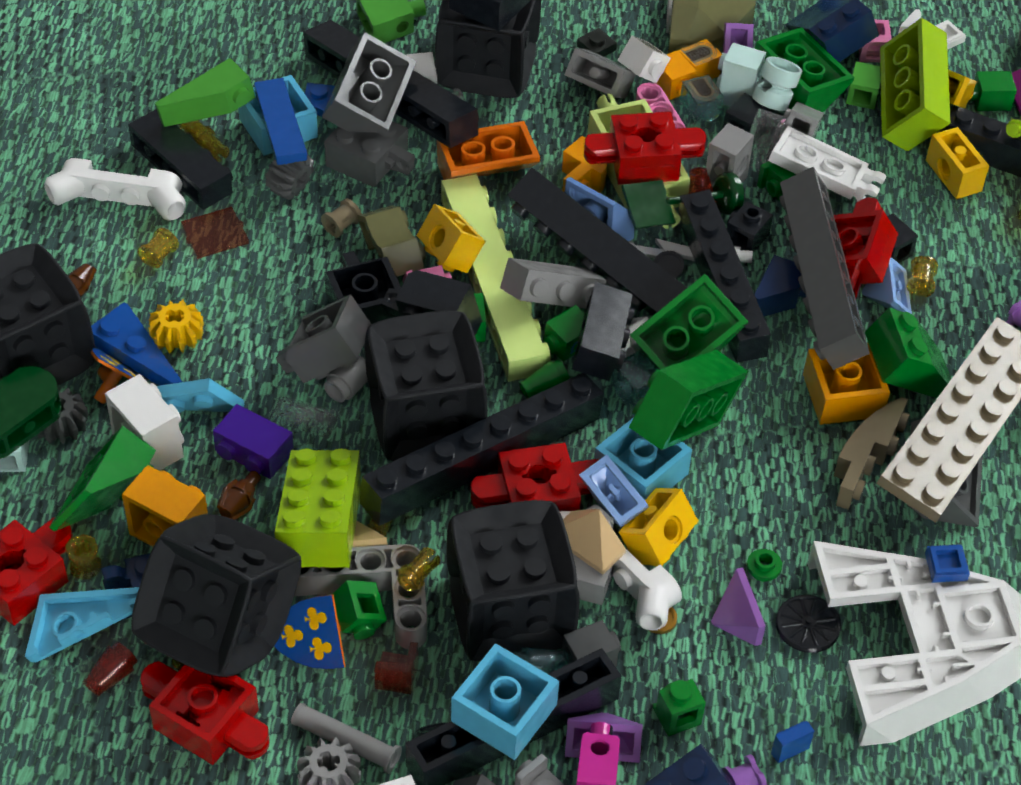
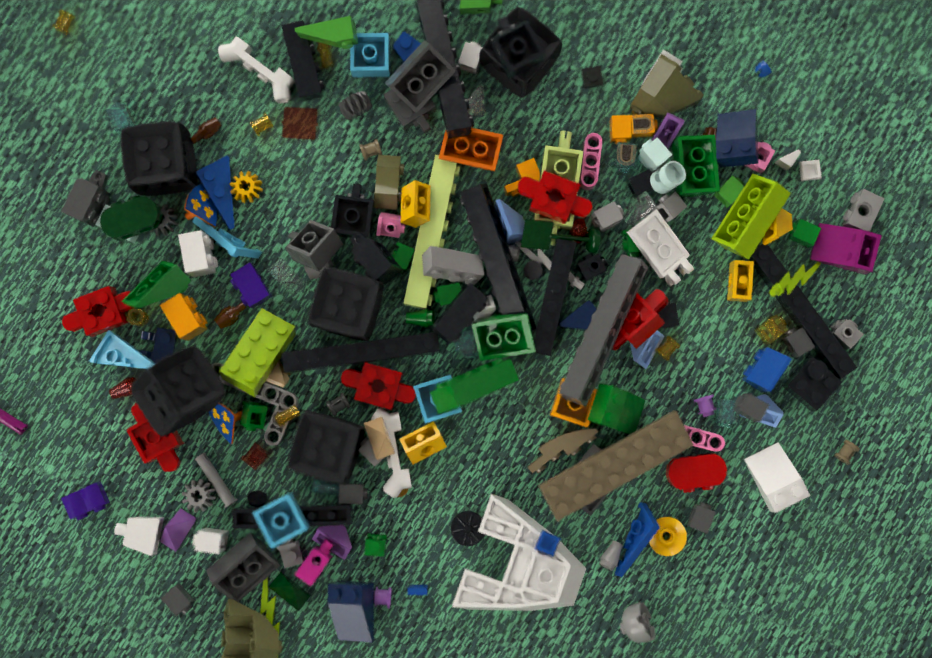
camera: 30 degrees right, 35 degrees up
(280, 121) = (360, 73): blue tile -> none
(600, 73) = (575, 109): light grey brick -> none
(613, 491) = (408, 416): light blue slope -> none
(644, 59) = (603, 116): white brick -> none
(739, 611) = (435, 506): medium lavender slope -> none
(764, 572) = (471, 481): green plate -> none

